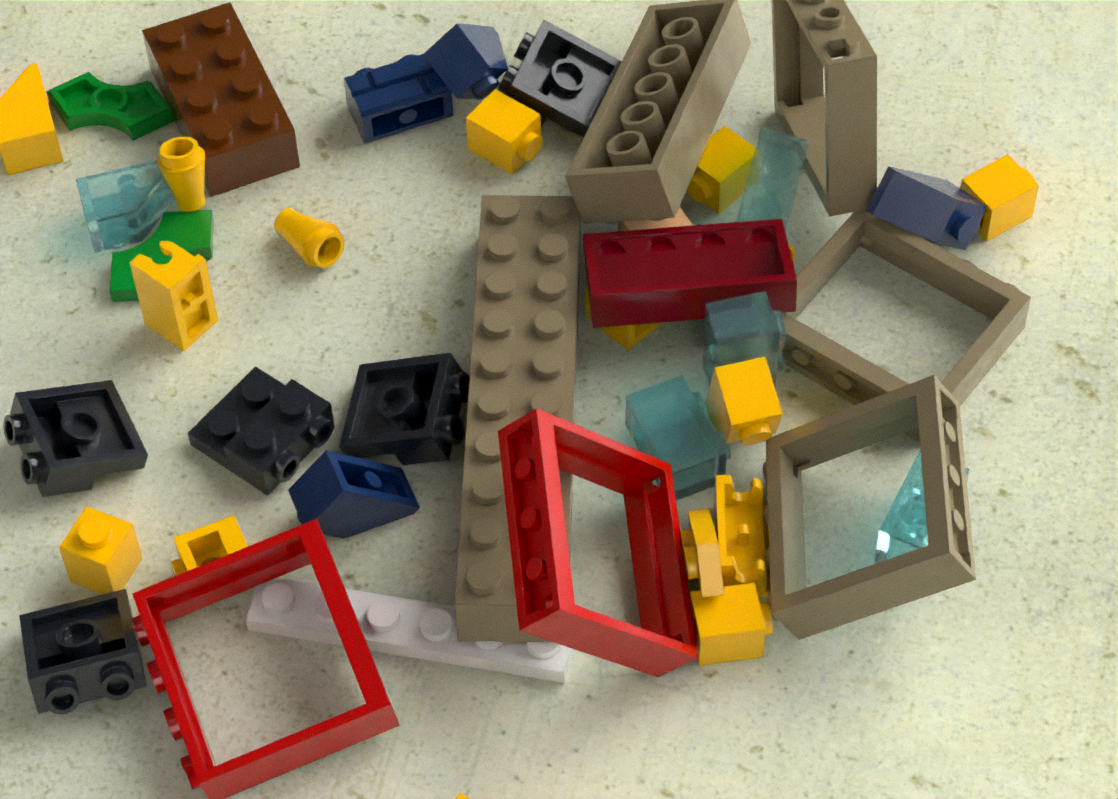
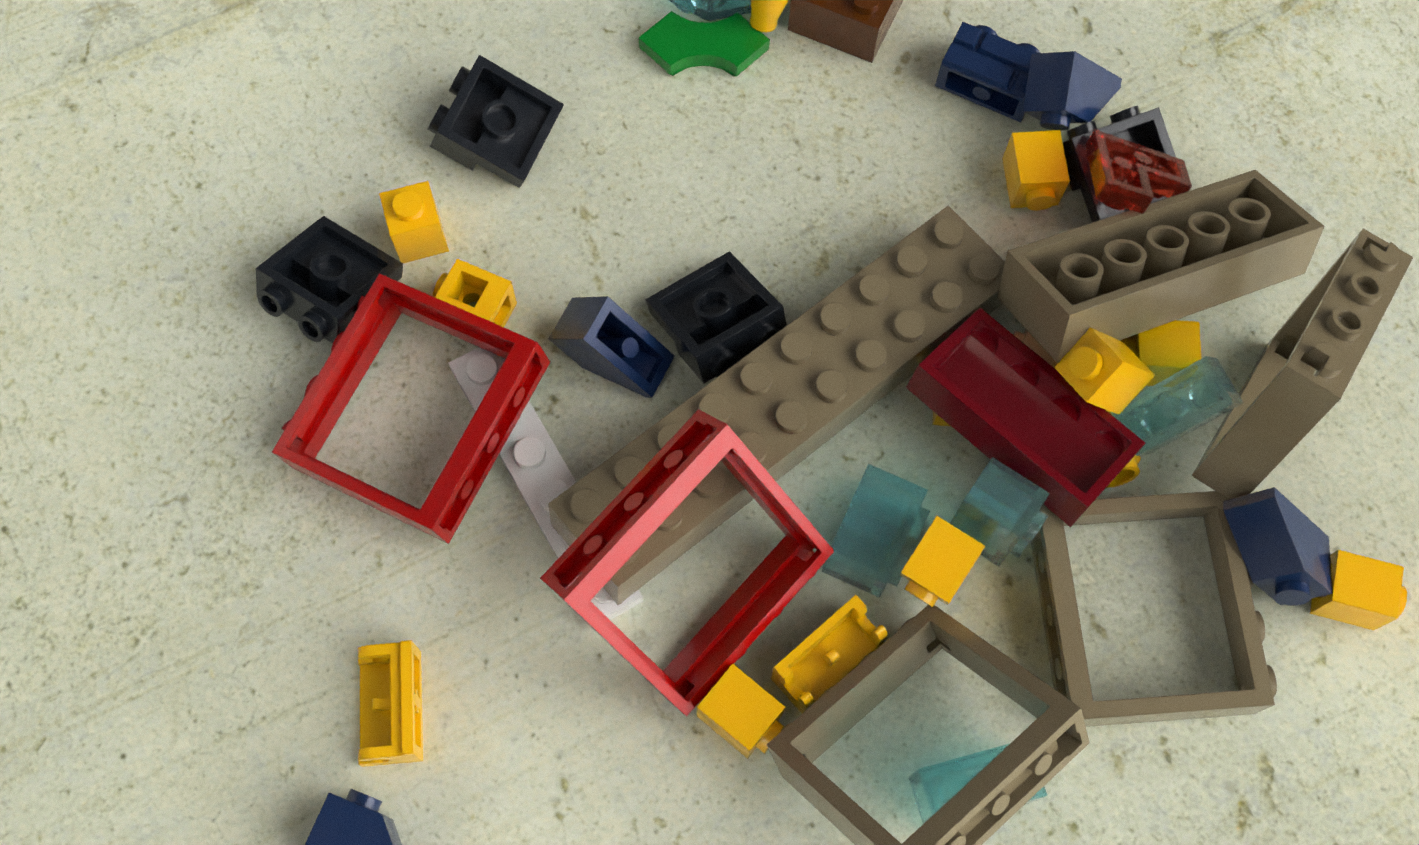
camera: 45 degrees right, 15 degrees up
(175, 295) = (662, 82): yellow hinge -> none
(264, 429) = (618, 236): black plate -> none
(311, 238) = (809, 124): yellow cone -> none
(578, 70) = (1133, 174): none -> clear red plate
(702, 553) = (764, 651): yellow plate -> none
(708, 196) = (1104, 371): none -> yellow brick

